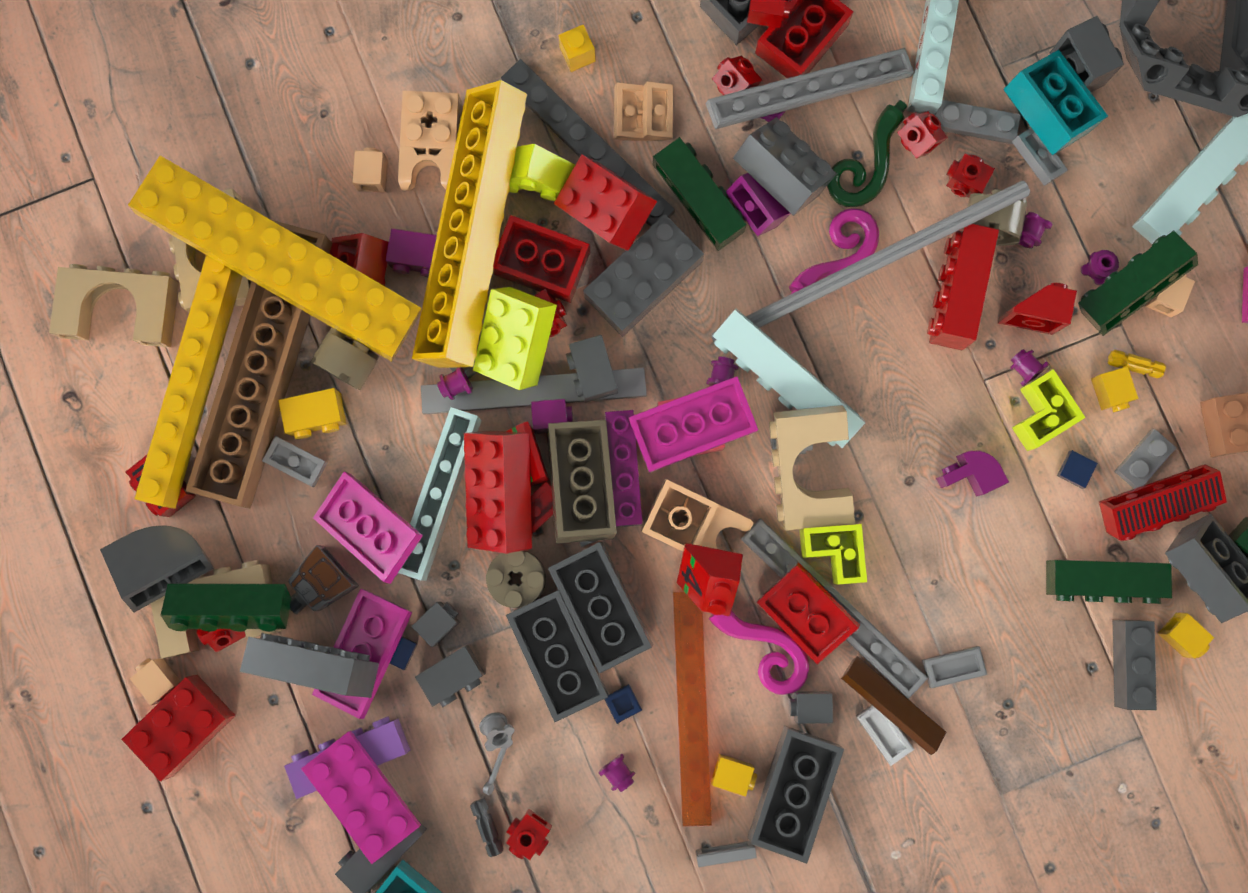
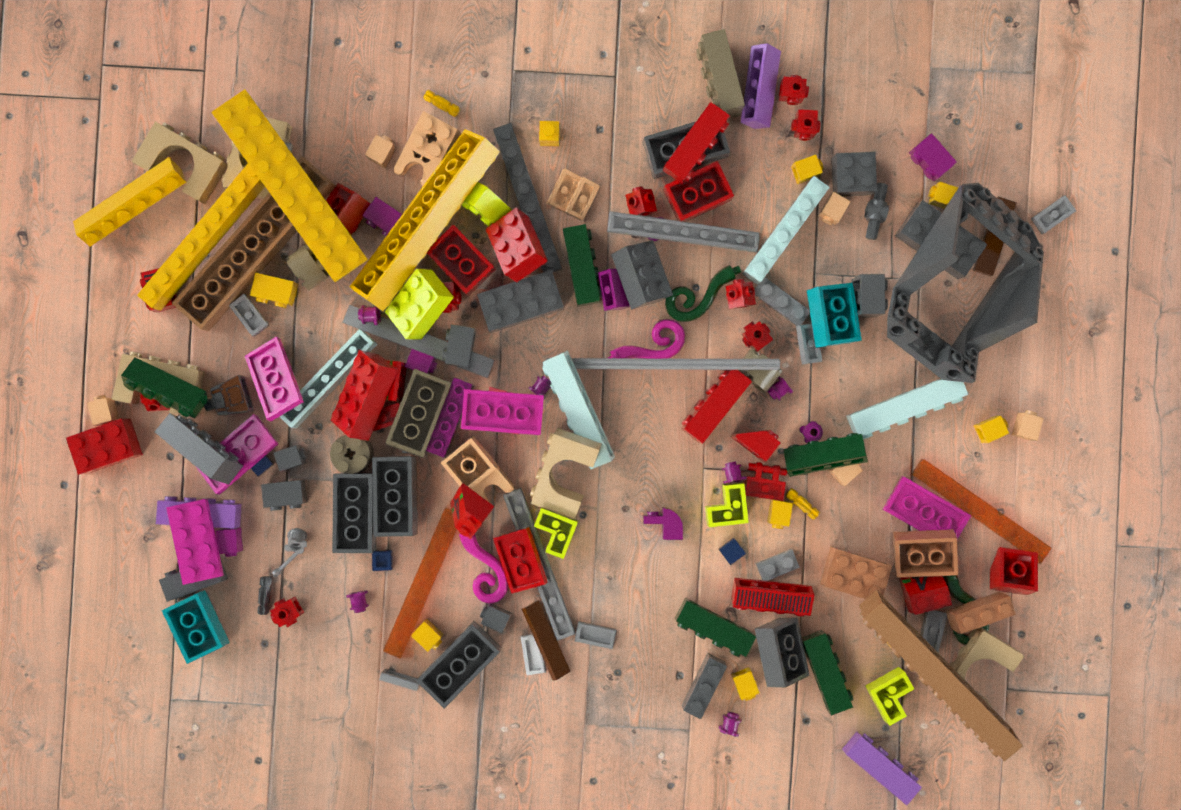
camera: 20 degrees right, 5 degrees up
(69, 387) = (129, 202): none -> yellow brick
(151, 560) = (130, 337): dark grey brick -> none
(406, 776) = (229, 541): none -> magenta brick
(420, 76) = (441, 103): none -> yellow axle
(1079, 365) = (765, 488): none -> red plate
(1195, 699) = (730, 724): none -> magenta brick

